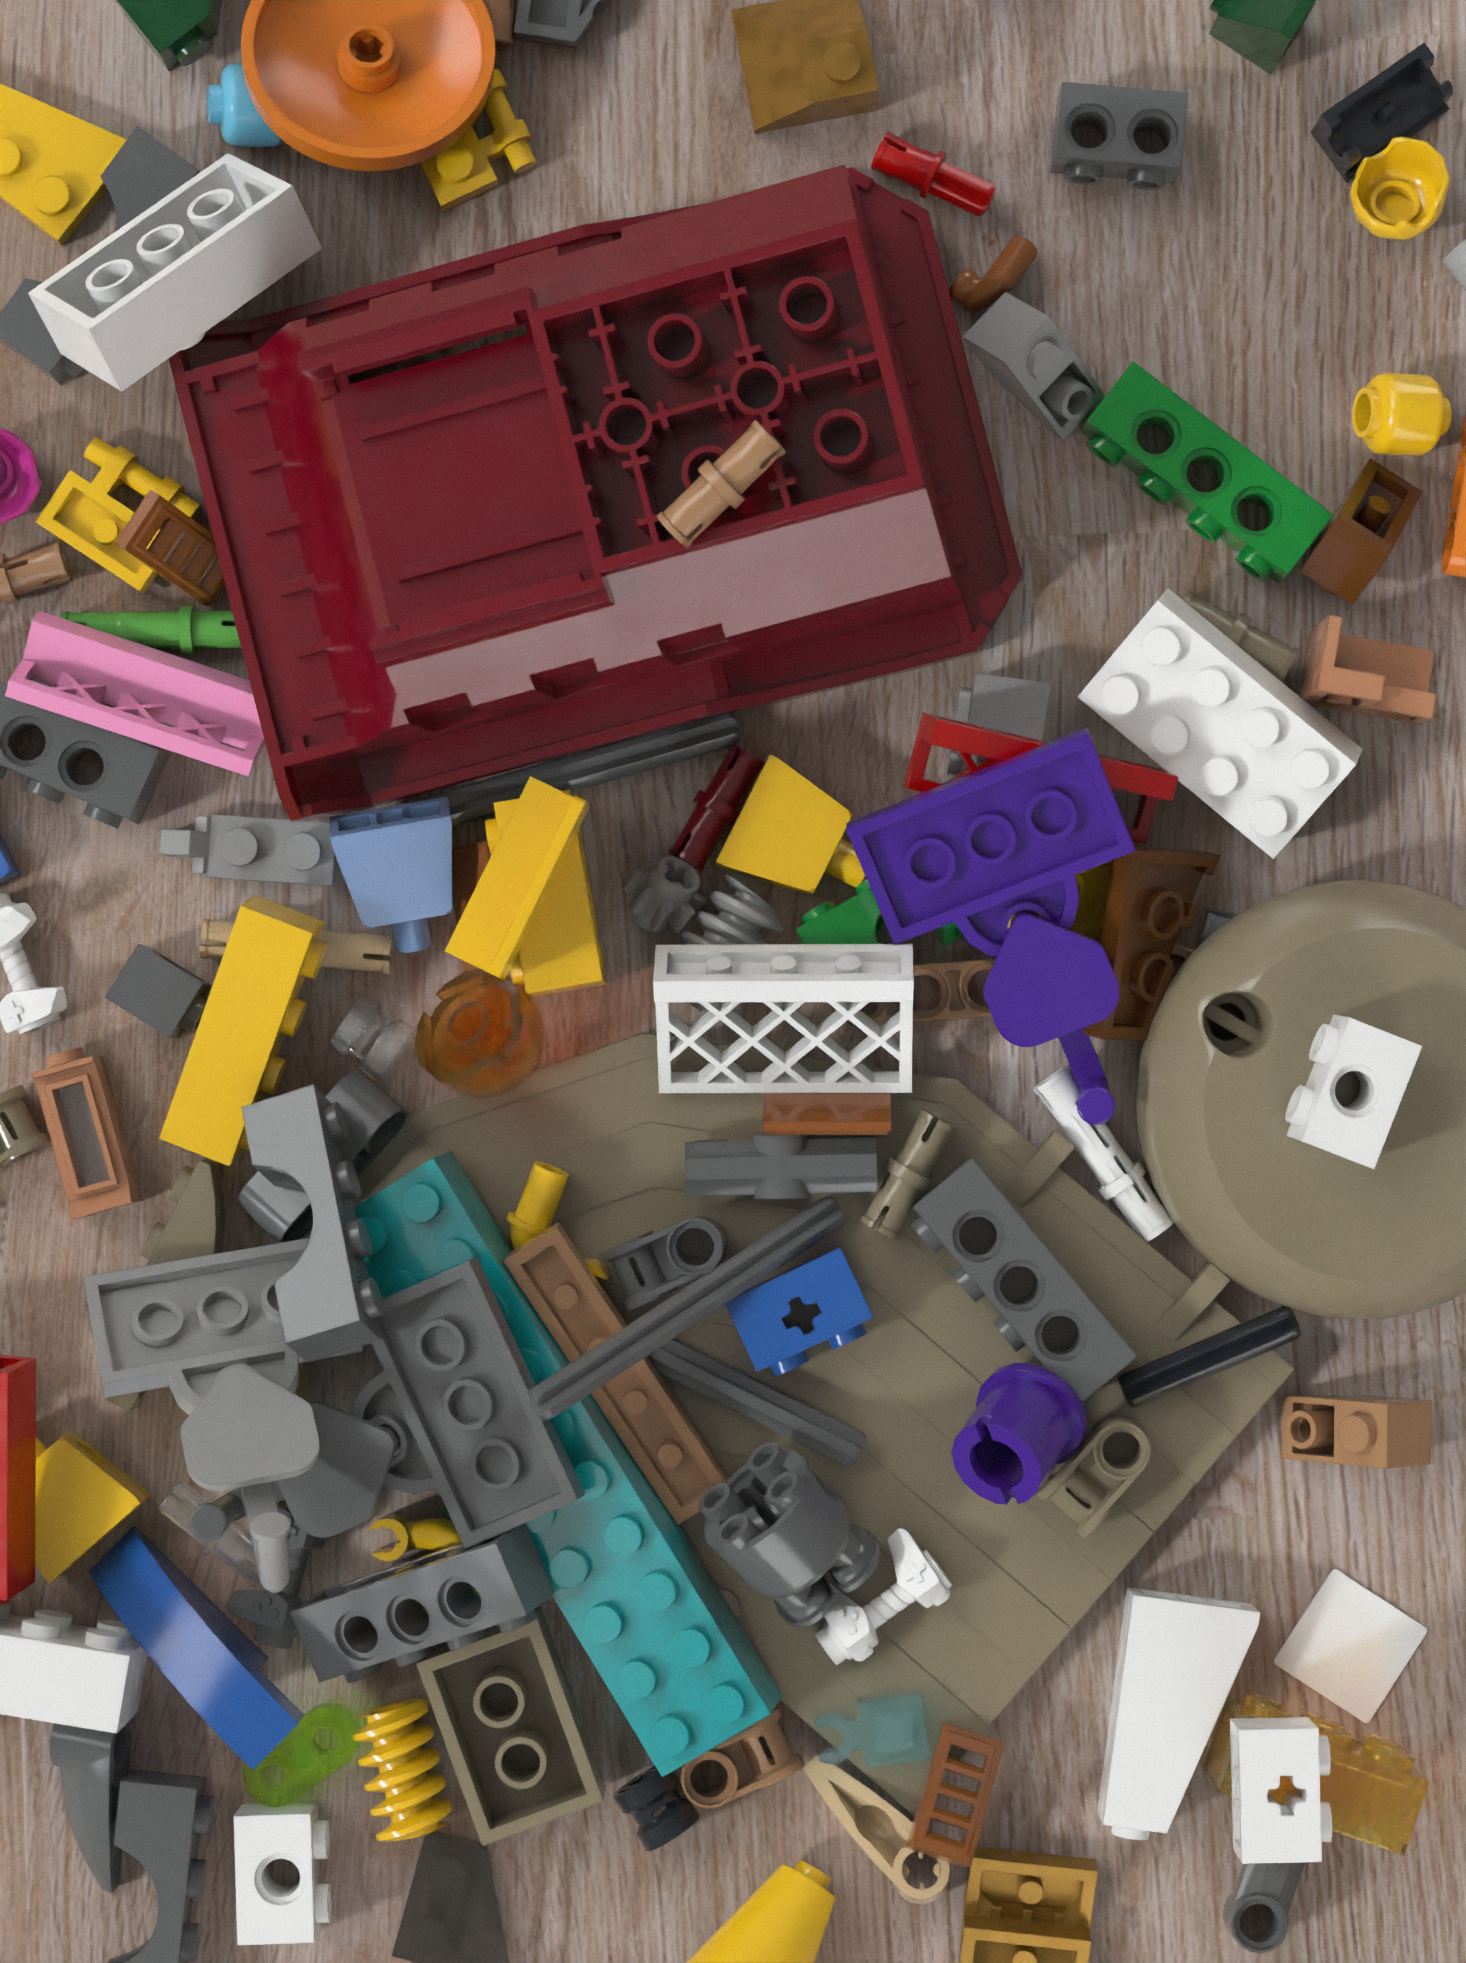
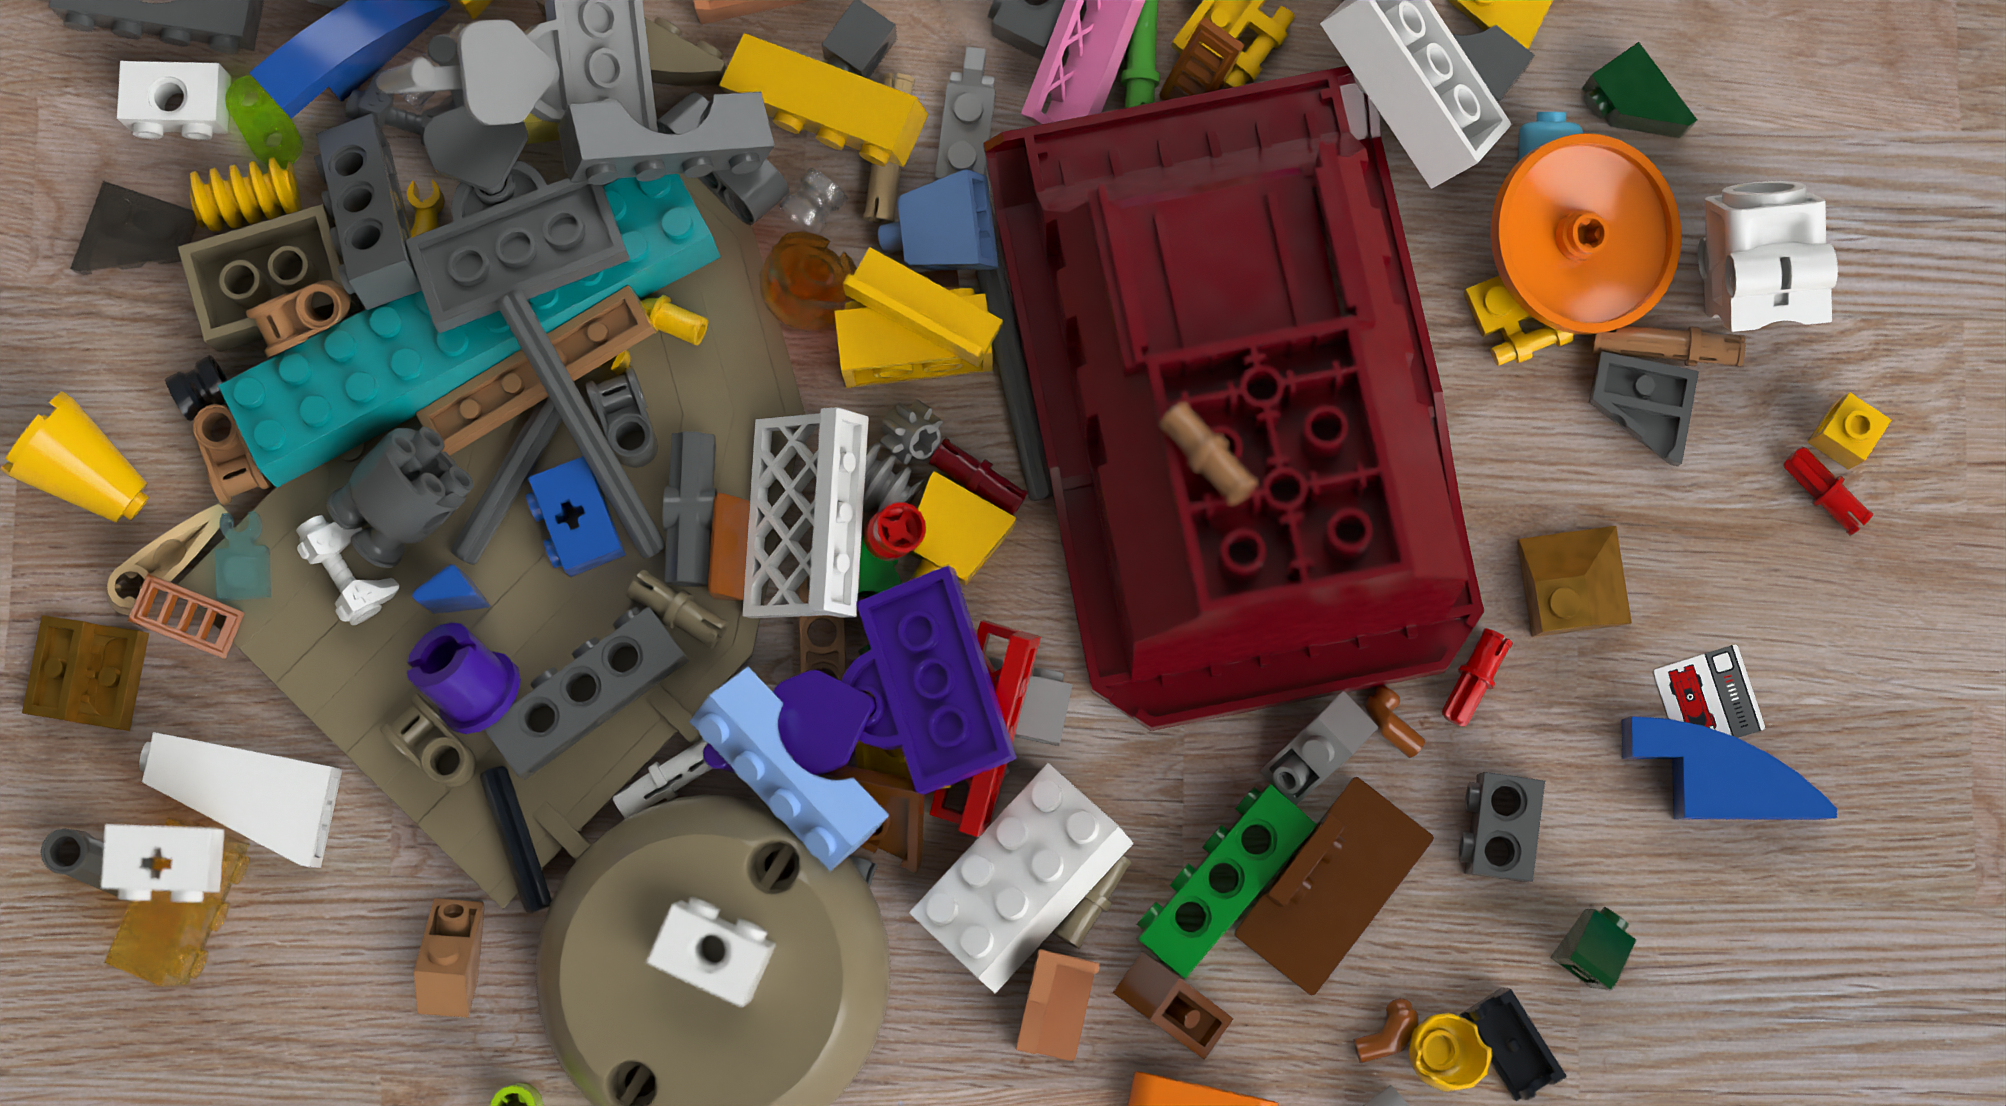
camera: 90 degrees right, 5 degrees down
(573, 1690) = (291, 317): none -> medium nougat piece
(795, 890) = (902, 524): none -> red wheel
(906, 1455) = (450, 592): none -> blue slope
(1068, 1071) = (822, 813): none -> light blue arch
(1202, 339) = (1333, 886): none -> reddish brown bracket
(1350, 1646) = (280, 945): white sticker -> none
(1381, 260) = (1394, 1035): none -> dark orange arm
(1401, 414) = (1266, 1043): yellow head -> none

